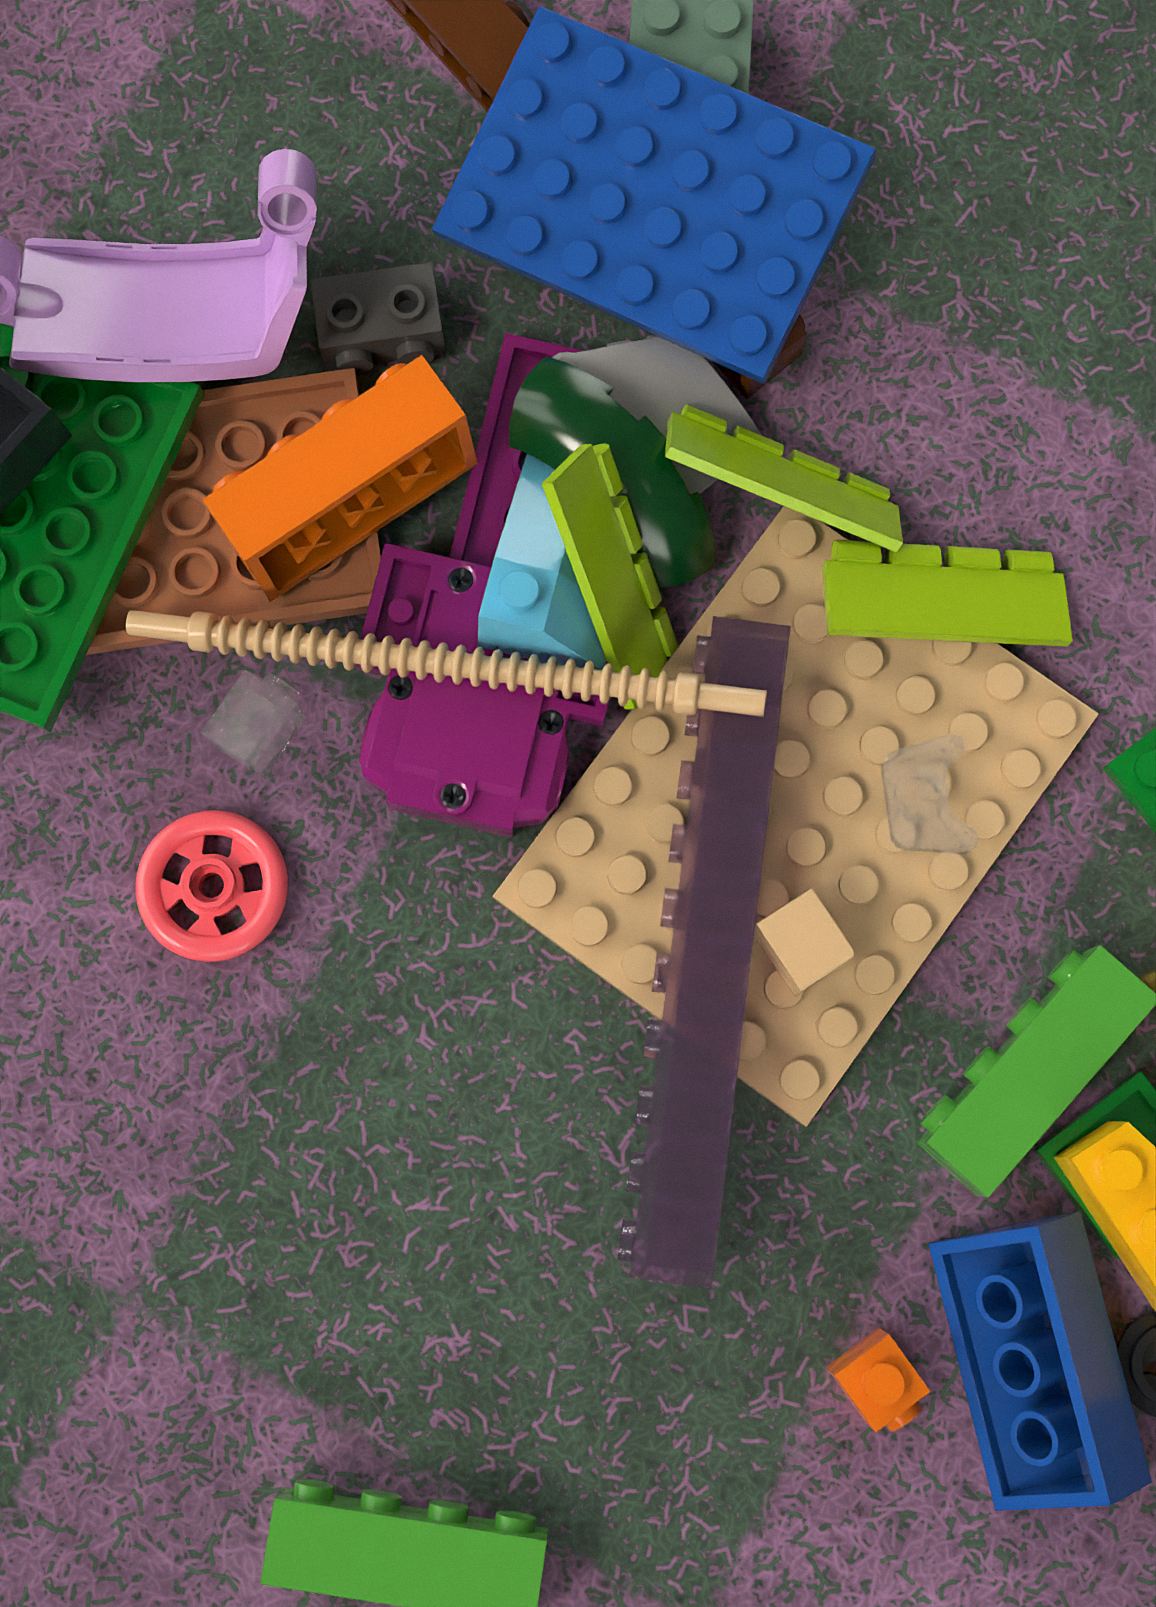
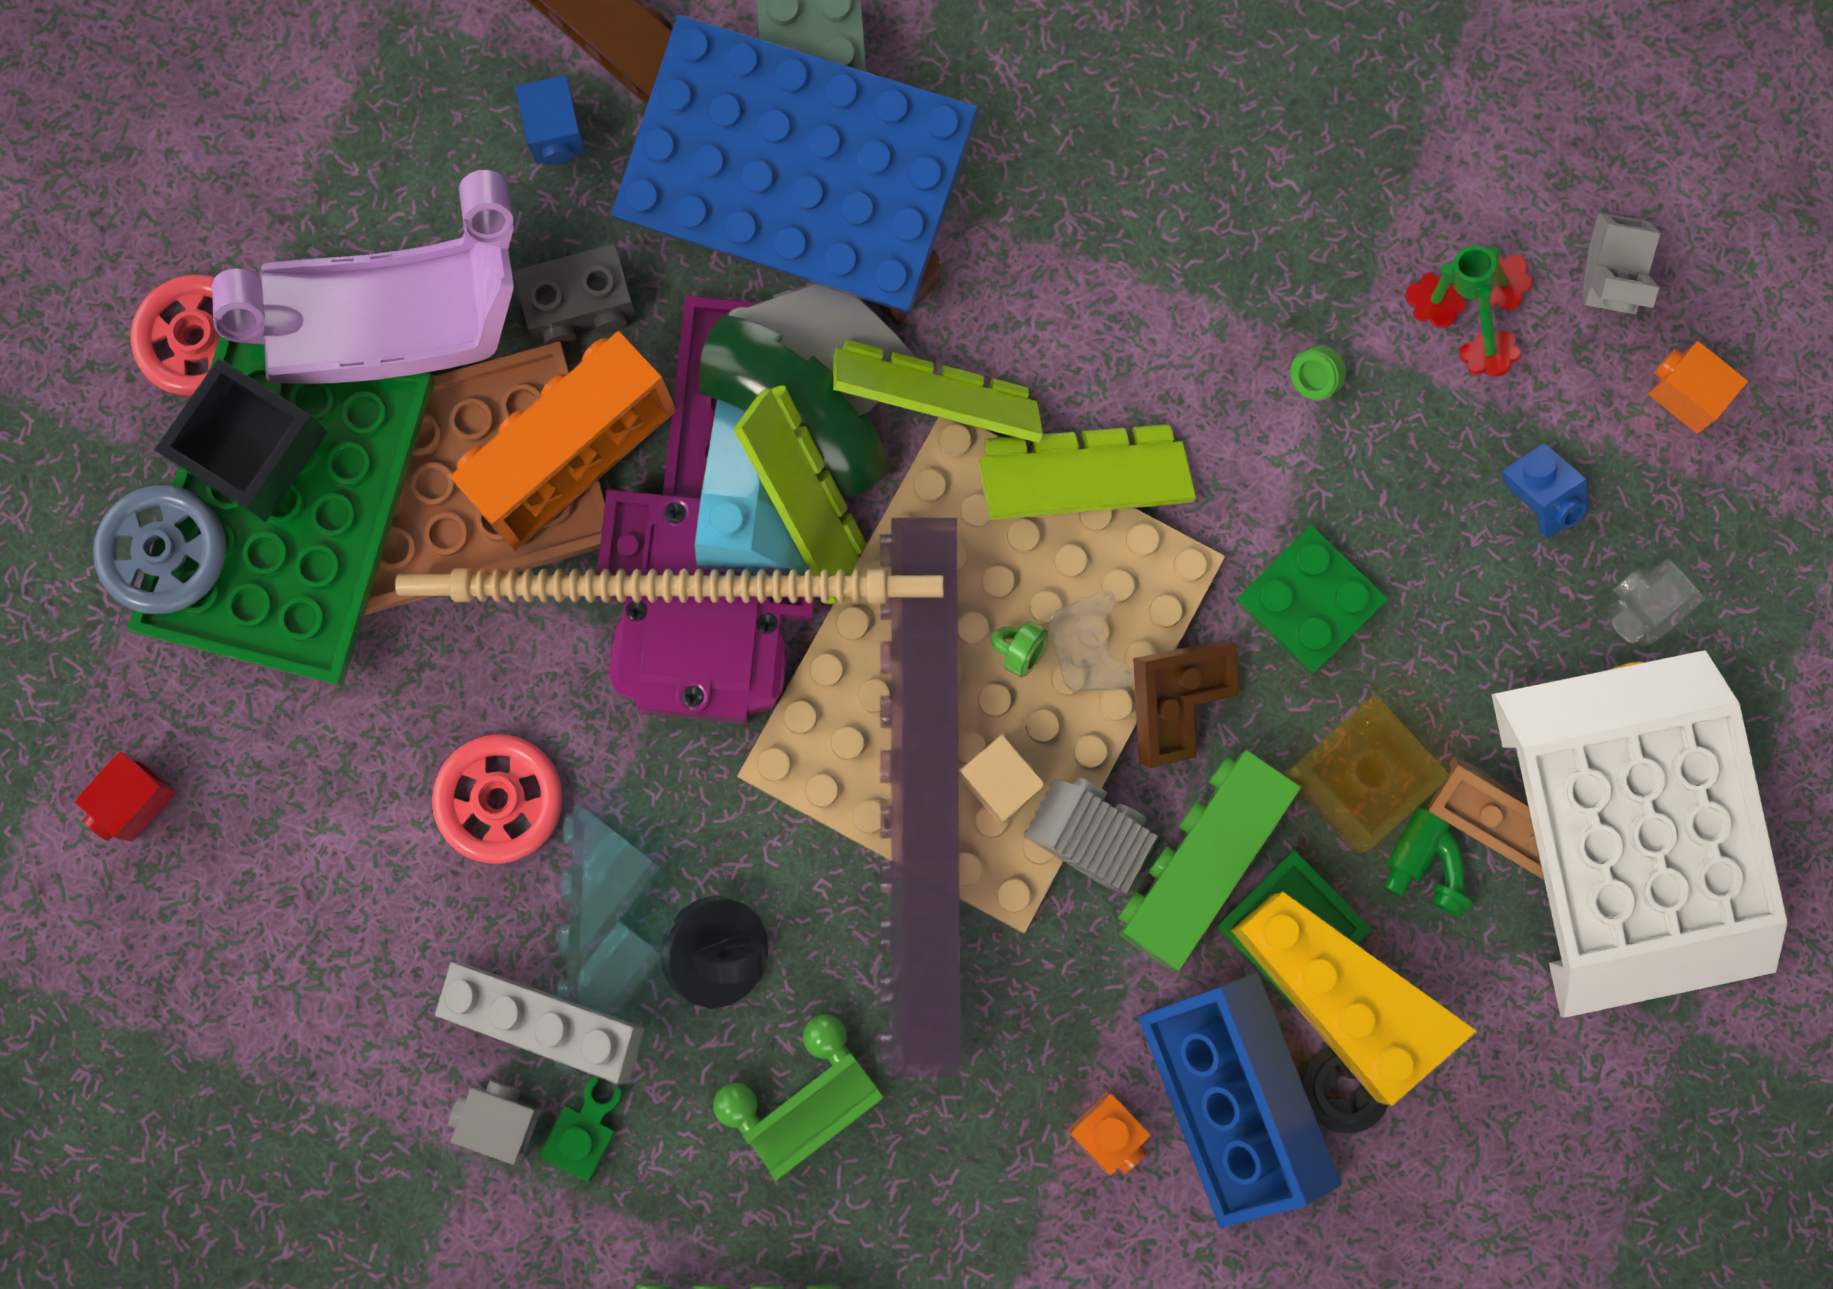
camera: 15 degrees left, 0 degrees up
(156, 1263) = (494, 1122): none -> light grey brick
(225, 1155) = (540, 1022): none -> light grey plate
(254, 1293) = (581, 1137): none -> green plate
(255, 721) = (517, 655): clear brick -> none
(310, 1083) = (604, 887): none -> clear light blue slope
(377, 115) = (550, 120): none -> blue brick
(439, 1099) = (714, 952): none -> black tile
(528, 1306) = (812, 1113): none -> bright green gear
(850, 792) = (1025, 649): none -> bright green tile
(902, 1021) = (1091, 834): none -> light grey brick
(1012, 864) = (1169, 688): none -> reddish brown plate

